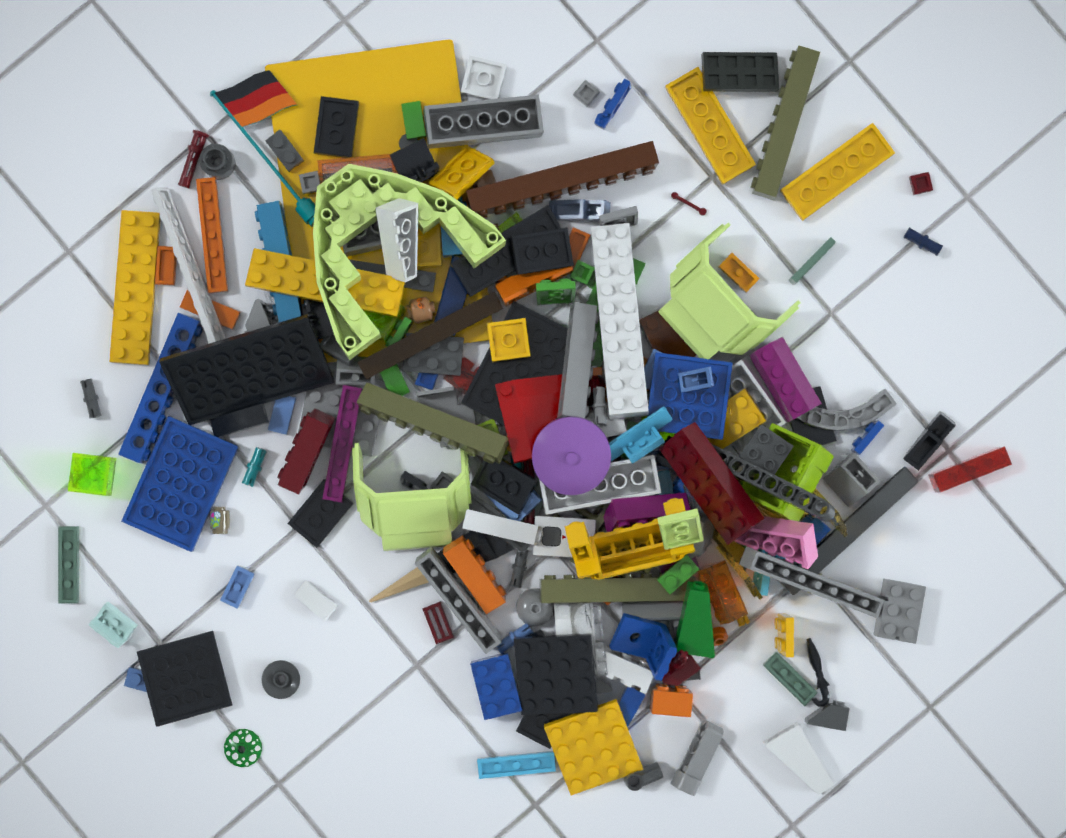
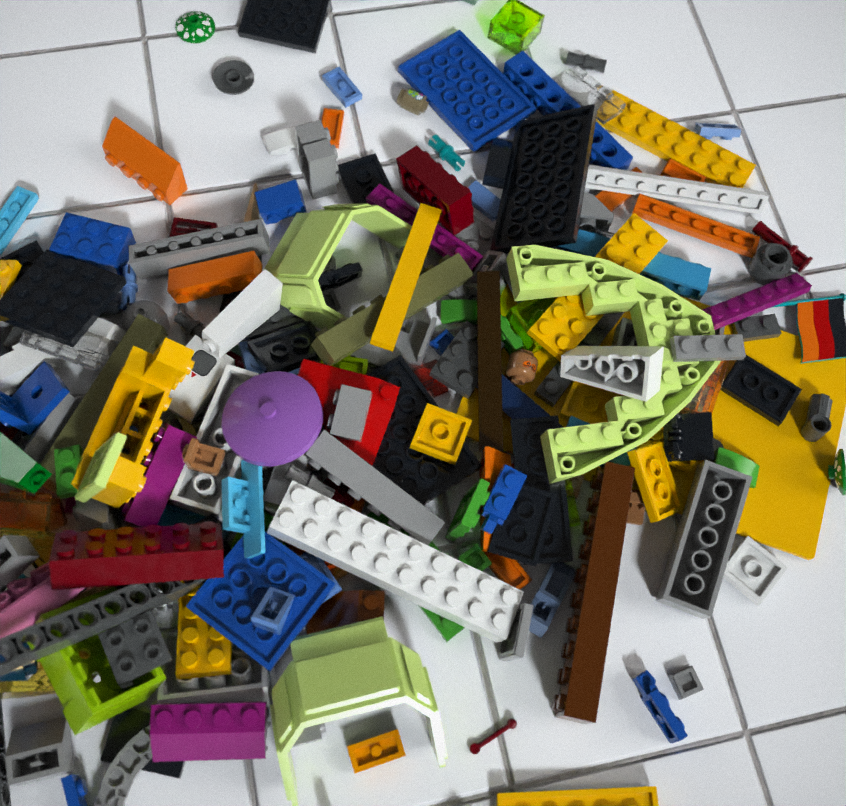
camera: 110 degrees right, 20 degrees down
(103, 256) = (724, 131): none -> medium blue plate
(127, 385) = (589, 91): none -> clear windscreen
(262, 160) = (757, 300): none -> magenta plate
(281, 573) = (333, 120): none -> orange tile
(331, 558) = (317, 159): none -> light grey piece
(337, 76) = (818, 417): none -> dark grey piece
(348, 177) = (707, 348): none -> light grey plate
(375, 45) = (838, 472): none -> green dish
(379, 568) = (280, 202): none -> blue brick
(404, 426) = (405, 278): none -> yellow tile
(405, 695) = (143, 162): none -> orange slope
(534, 272) = (502, 497): none -> blue hinge
(538, 404) = (350, 412): none -> light grey brick
(624, 484) = (203, 457): none -> medium nougat bracket

